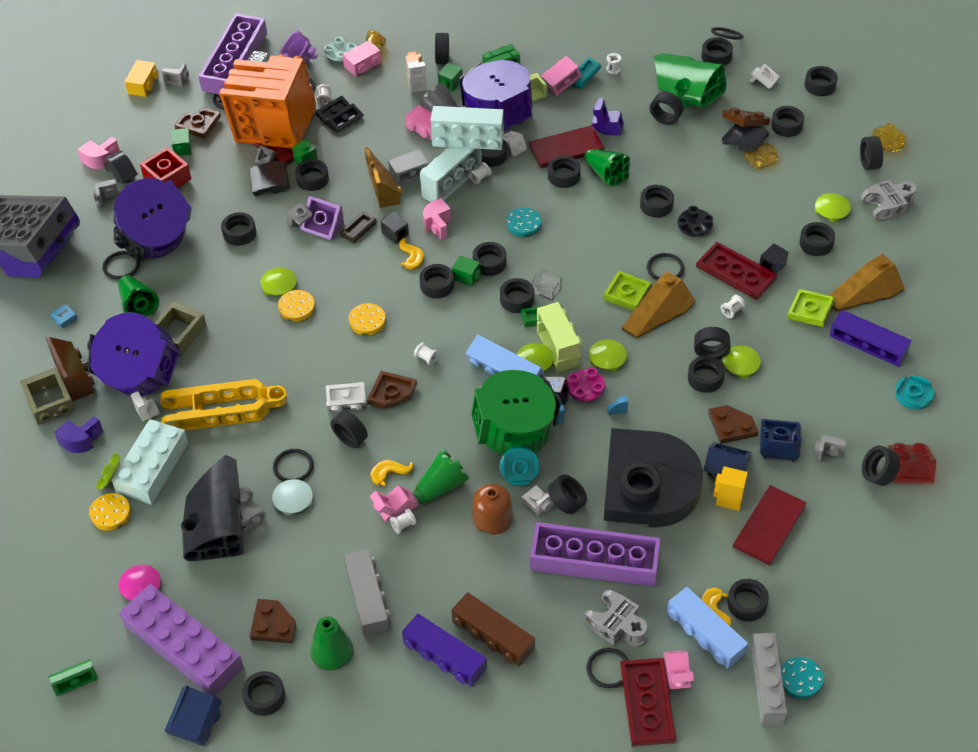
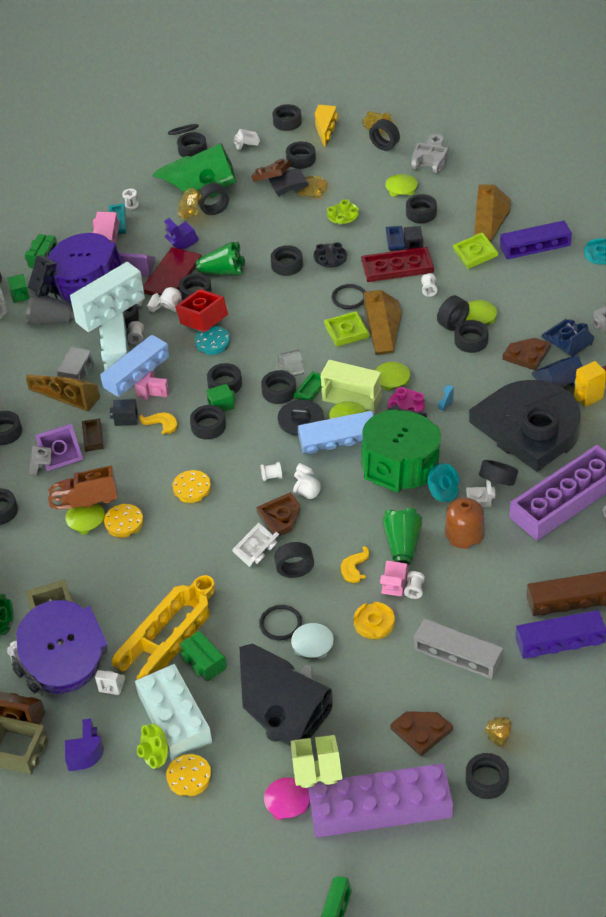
camera: 45 degrees left, 5 degrees down
(168, 573) = (308, 771): none -> yellowish green piece
(194, 715) = (461, 838): dark blue slope -> none
(215, 441) = (203, 656): none -> green brick
(296, 262) = (85, 489): none -> dark orange brick
(311, 672) = (499, 730): none -> clear yellow cone
(330, 645) = (486, 699): green cone -> none
(348, 521) = (374, 620): none -> yellow tile
(419, 121) = (43, 330): bright pink brick -> none
(434, 196) = (135, 365): none -> light blue brick
(434, 383) = (306, 484): none -> white piece
(453, 78) = (42, 275): none -> black bracket
(502, 330) = (299, 413): none -> black shield
(533, 164) = (168, 299): none -> white piece
(539, 191) = (201, 310): none -> red brick
(550, 117) = (142, 262): none -> medium lavender slope
(645, 95) = (188, 203): none -> clear yellow dish
(753, 194) = (343, 212): none -> lime dish
(762, 245) = (395, 238): none -> dark blue tile
(844, 106) = (325, 121): none -> yellow slope

